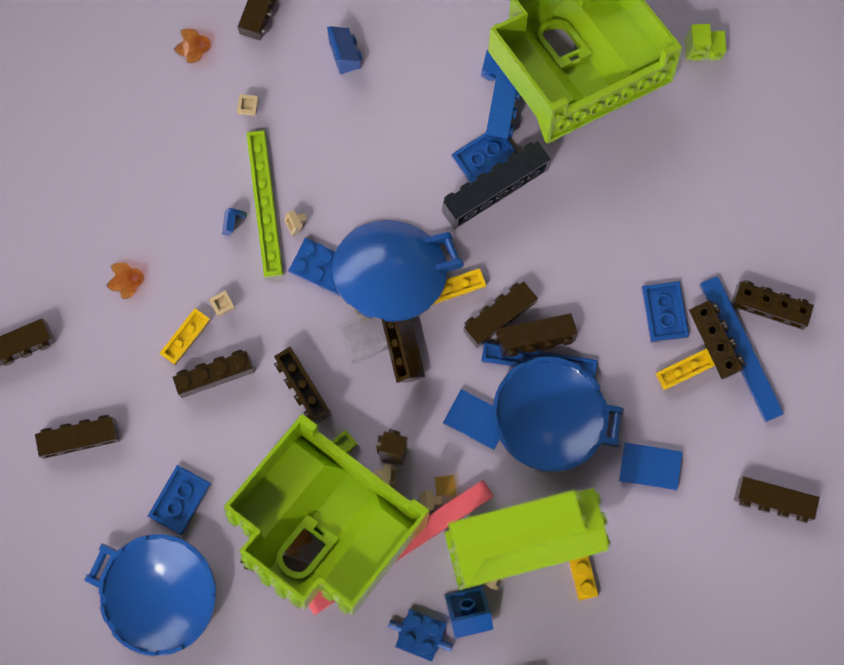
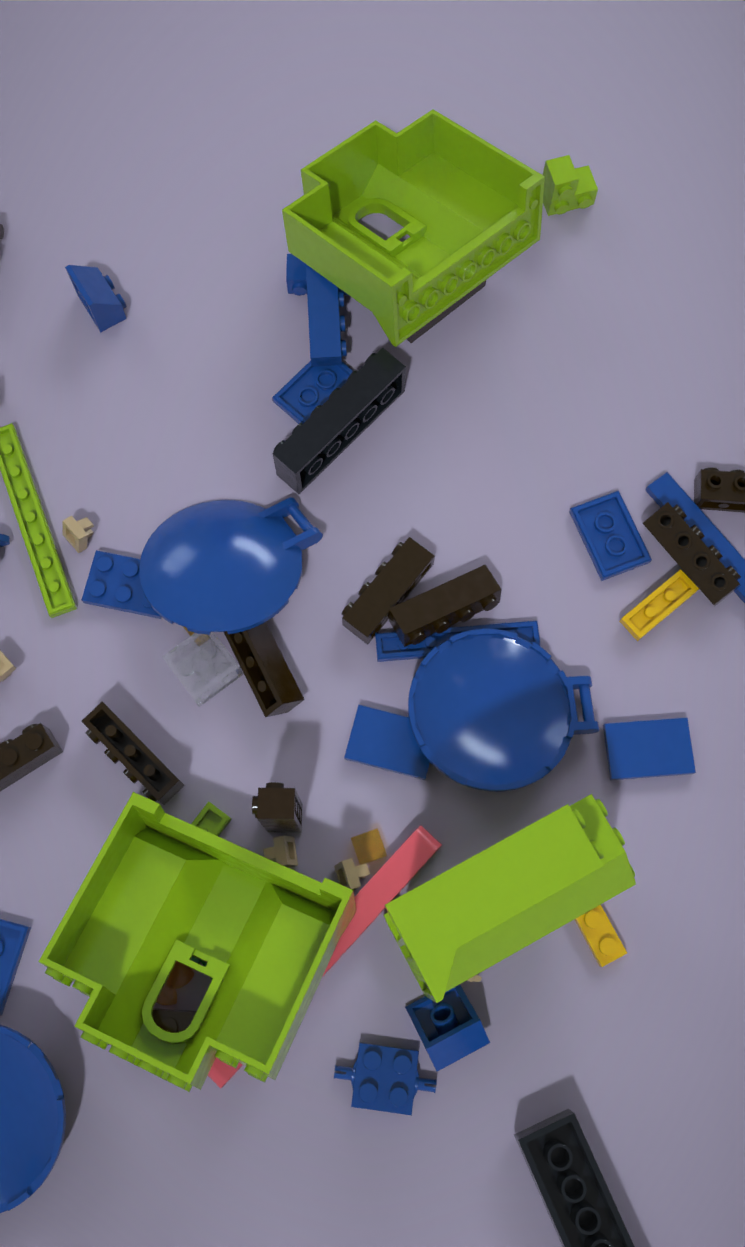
camera: 10 degrees left, 5 degrees down
(462, 285) = (325, 565): yellow plate -> none

